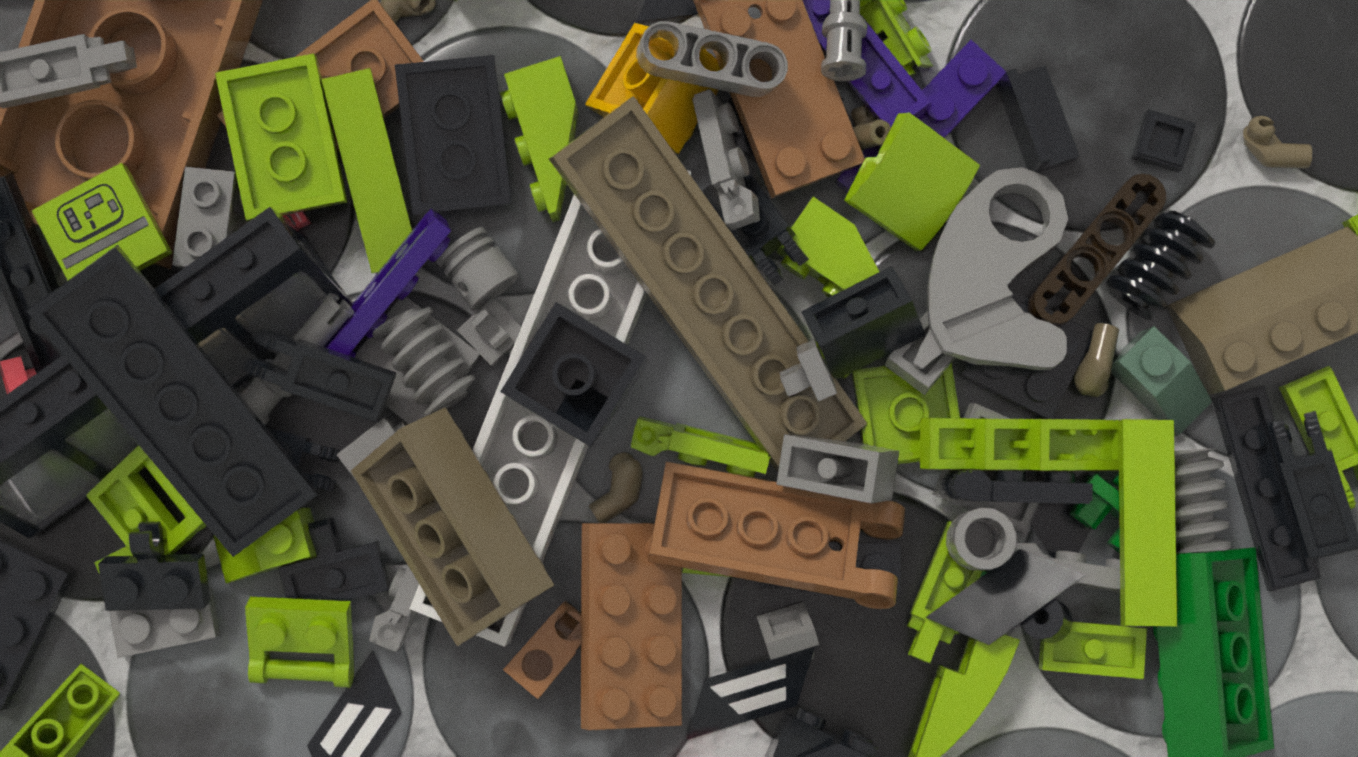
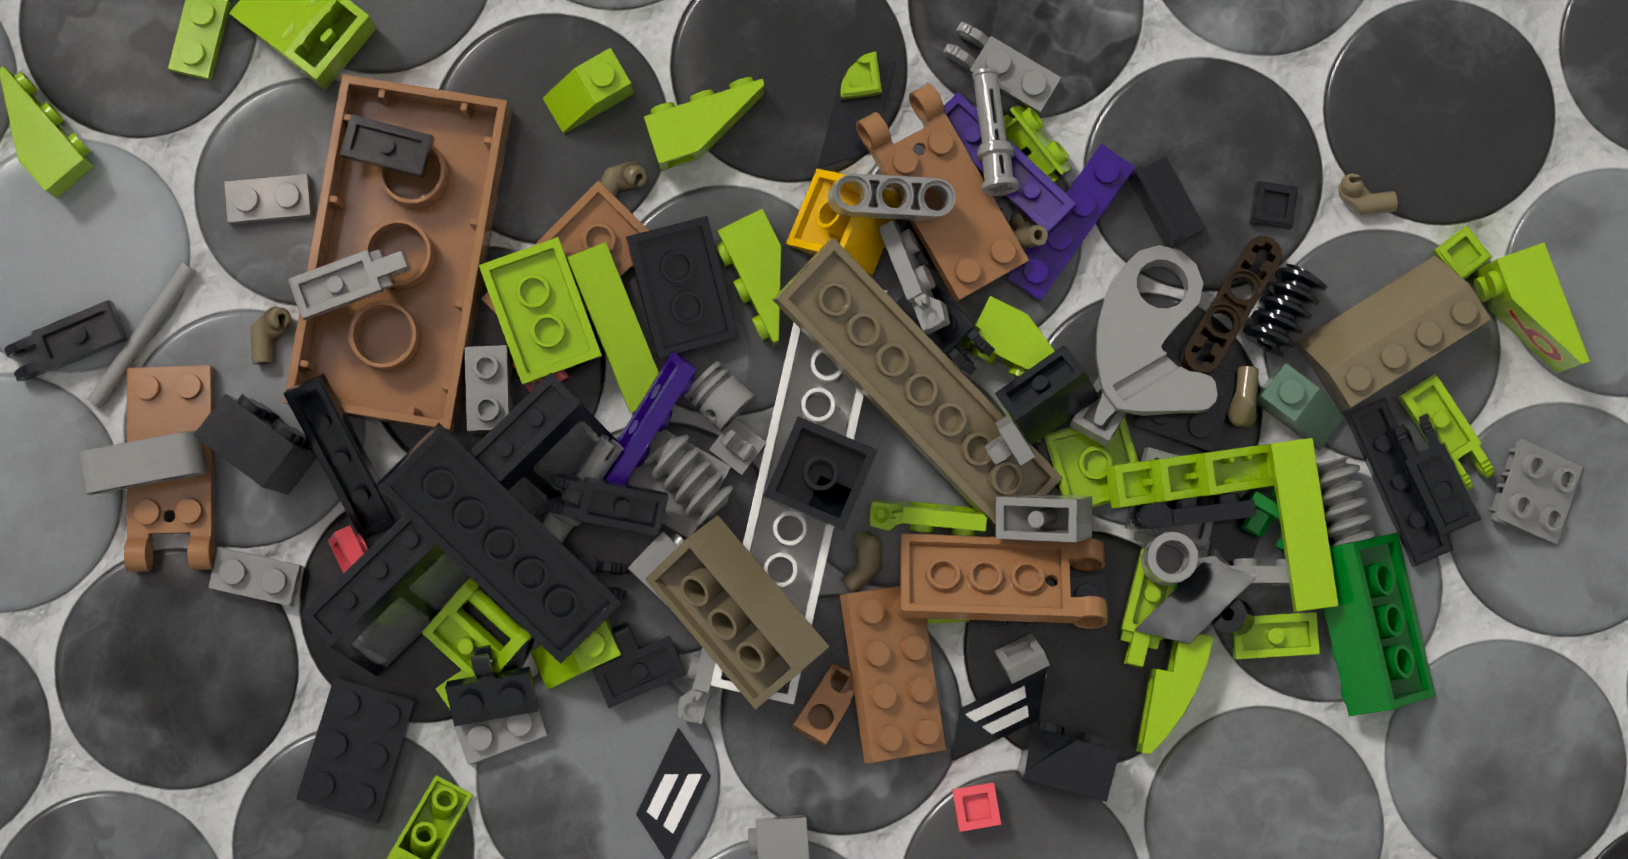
camera: 20 degrees left, 0 degrees up
(98, 217) = (403, 408): lime tile -> none
(301, 628) = (619, 716): lime plate -> none
(912, 182) = (1070, 271): lime slope -> none

